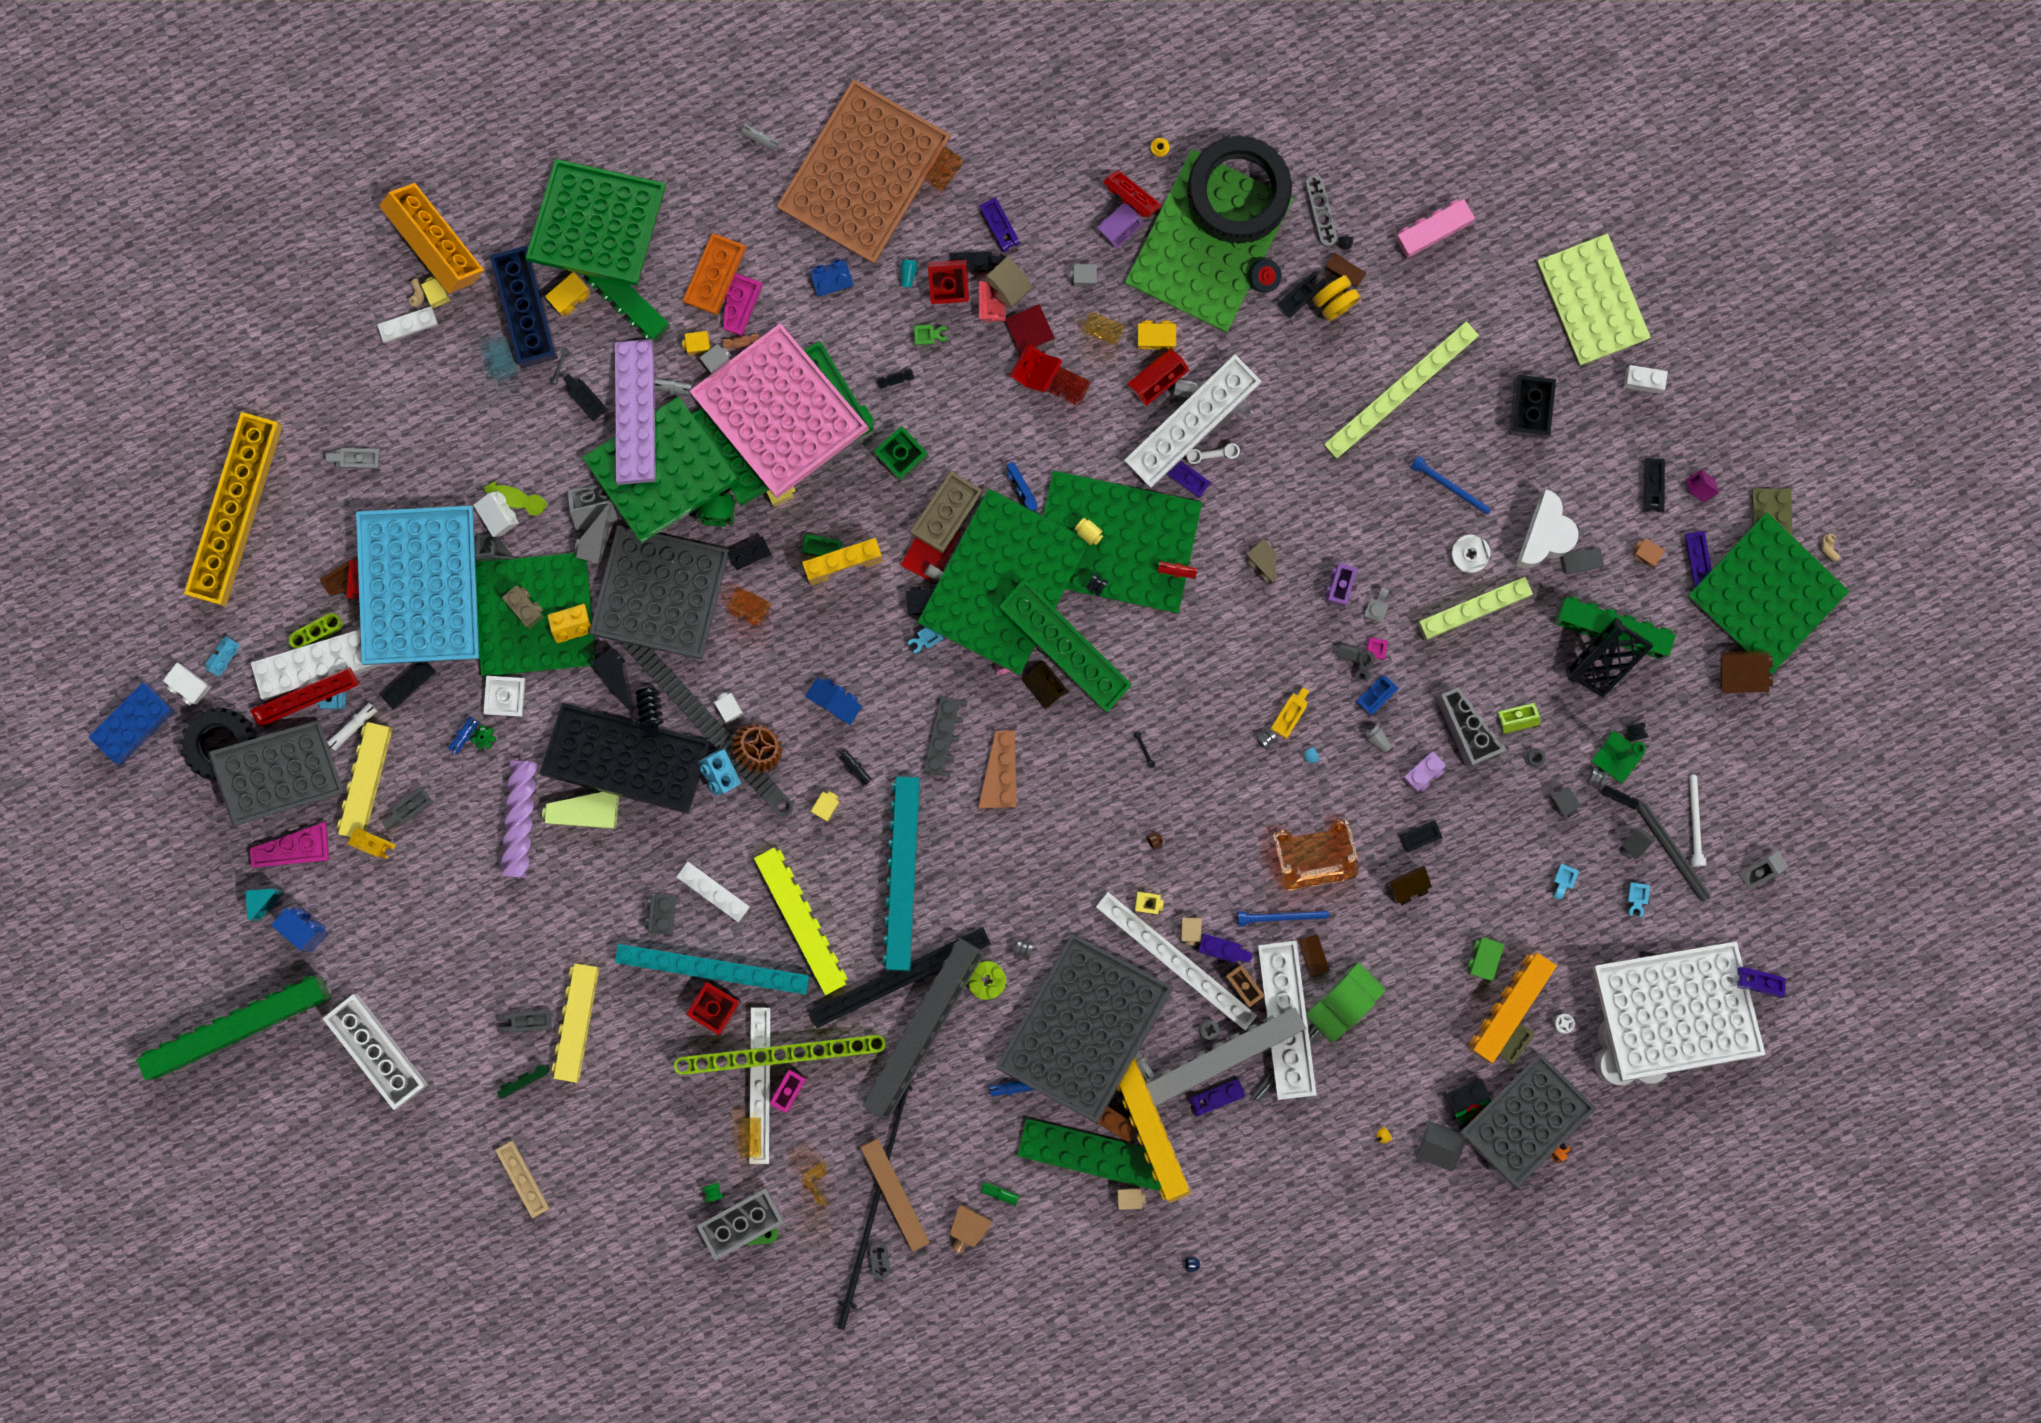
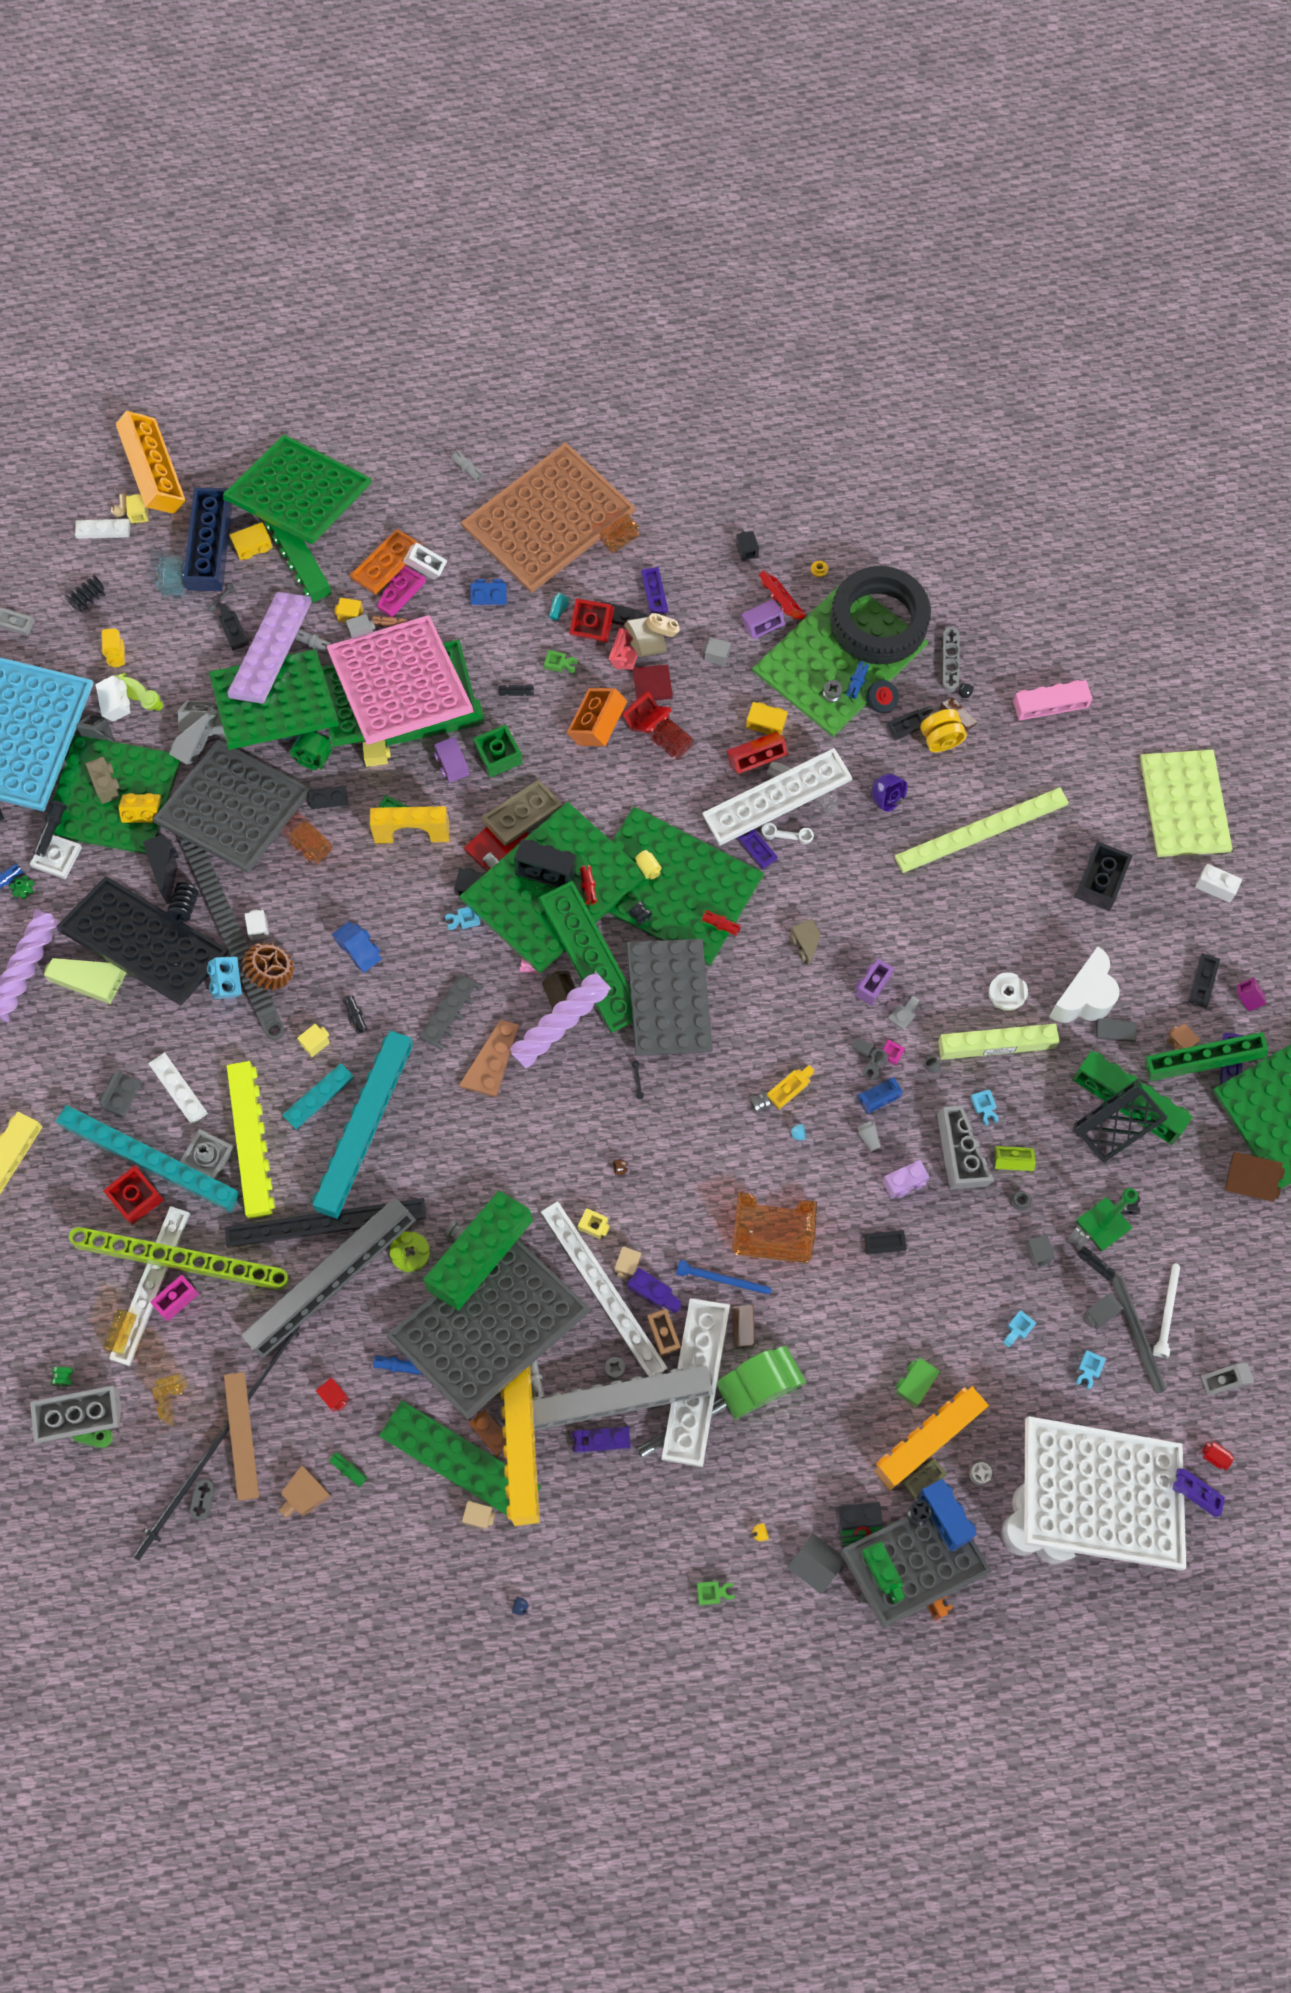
camera: 15 degrees right, 15 degrees down
(422, 407) = (85, 594): none -> black piece
(475, 460) = (113, 647): none -> yellow brick
(489, 662) = (52, 820): none -> black pin
(756, 266) = (425, 561): none -> white brick
(765, 948) = (207, 1154): none -> light grey plate
(848, 858) = (318, 1096): none -> teal plate
(858, 477) = (451, 760): none -> medium lavender brick
(964, 1133) = (332, 1395): none -> red brick
(988, 388) = (597, 717): none -> orange brick
(993, 568) = (544, 863): none -> black brick
(1020, 263) = (662, 625): none -> tan plate
(1022, 487) = (599, 813): blue hinge -> none
(1038, 573) = (588, 884): none -> red pin
(1052, 962) = (478, 1250): none -> green brick
(1056, 718) = (564, 1016): none -> lavender piece
(1078, 143) = (747, 545): none -> black brick
(1103, 328) = (719, 701): clear yellow panel -> none
(1150, 660) = (669, 997): none -> dark grey plate
(1216, 290) = (832, 696): none -> flat silver wheel
(1235, 267) = (857, 680): none -> blue pin
(1298, 378) = (886, 789): none -> dark purple cylinder
(1356, 1201) = (710, 1593): none -> bright green plate
(1408, 885) = (859, 1283): dark brown slope -> none
(1418, 649) = (932, 1064): none -> dark grey hinge
(1420, 465) = (981, 899): blue piece -> none
(1477, 674) = (984, 1103): none -> medium azure plate
(1503, 1140) = (884, 1571): none -> green hinge
(1523, 1078) = (923, 1509): none -> black wheel
(1545, 1071) = (948, 1515): none -> blue brick
(1674, 567) = (1206, 1056): none -> green brick
(1770, 942) = (1217, 1455): none -> red brick

